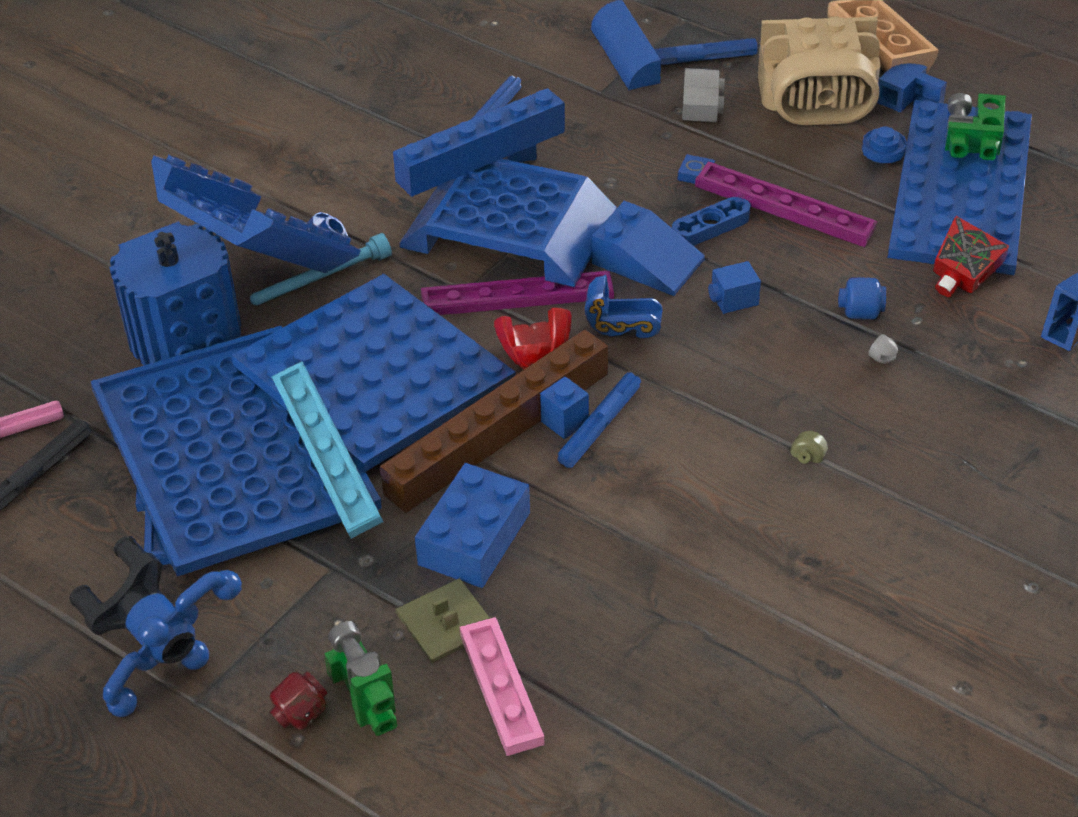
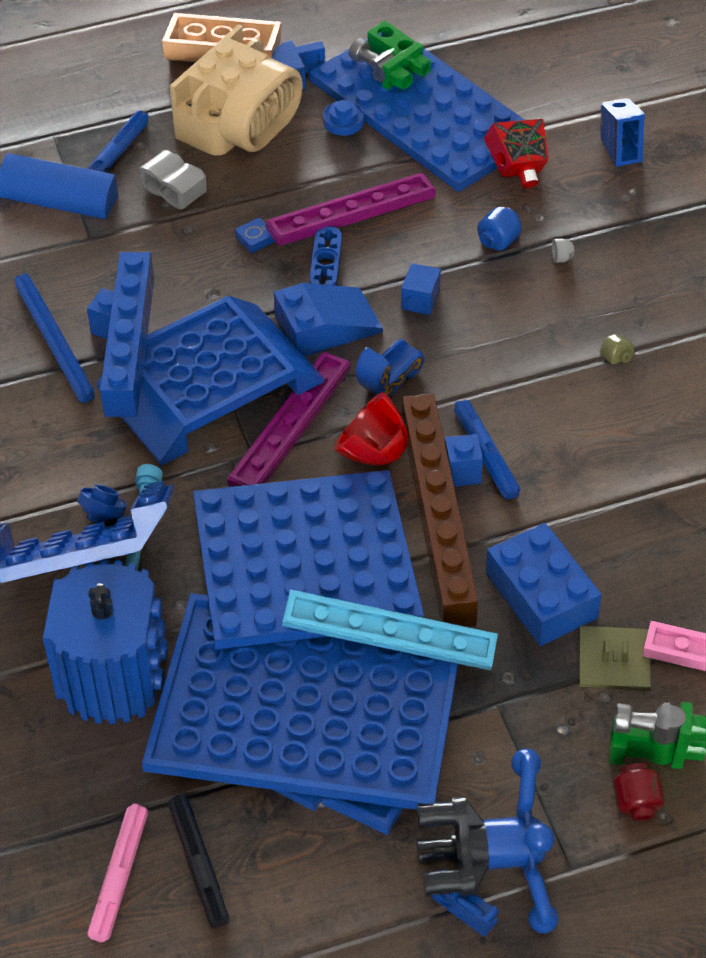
camera: 55 degrees left, 5 degrees up
(98, 654) = (470, 910): none -> blue piece

